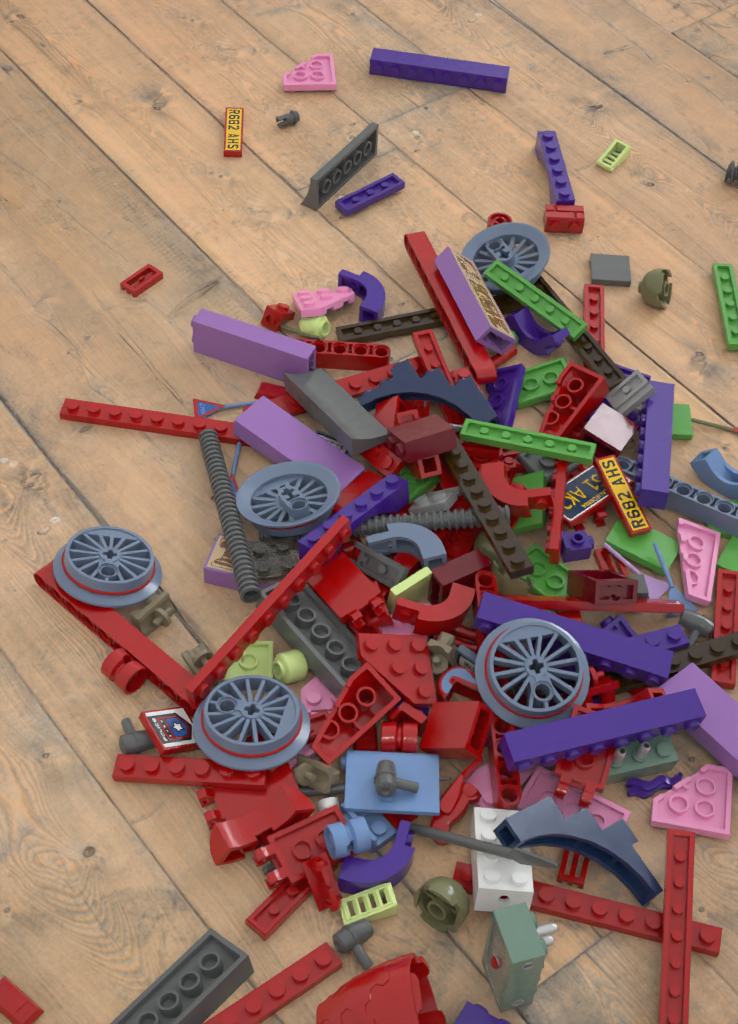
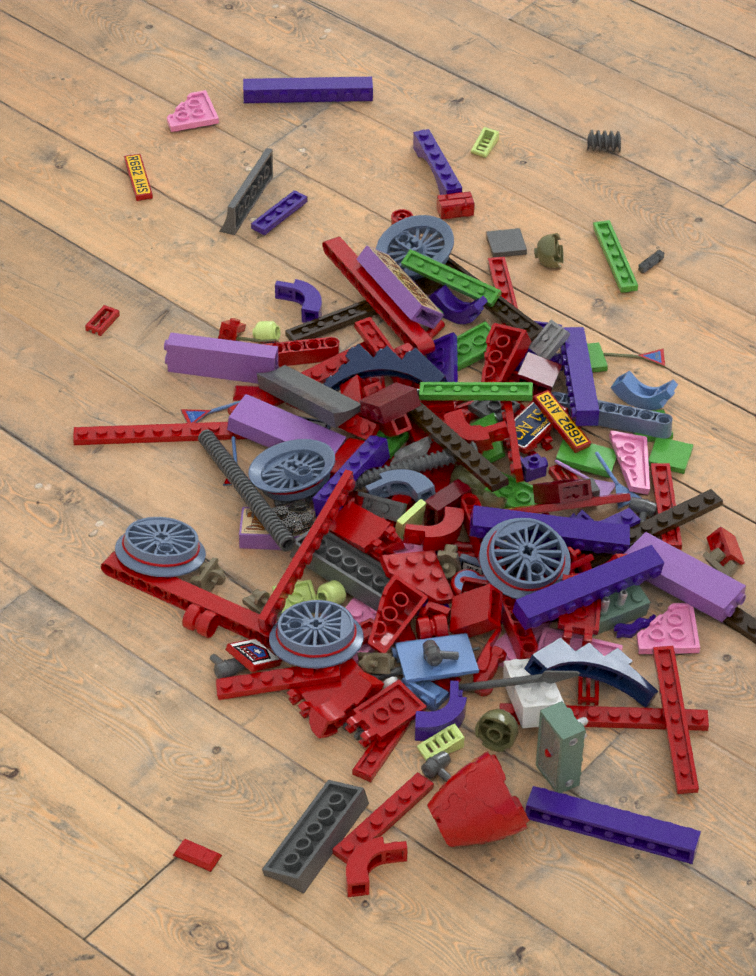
camera: 10 degrees left, 5 degrees down
(289, 118) = (185, 156): dark grey pin -> none
(316, 303) = (266, 310): bright pink plate -> none
(322, 882) = (403, 733): red hinge -> none
(343, 838) = (415, 697): medium blue wheel -> none

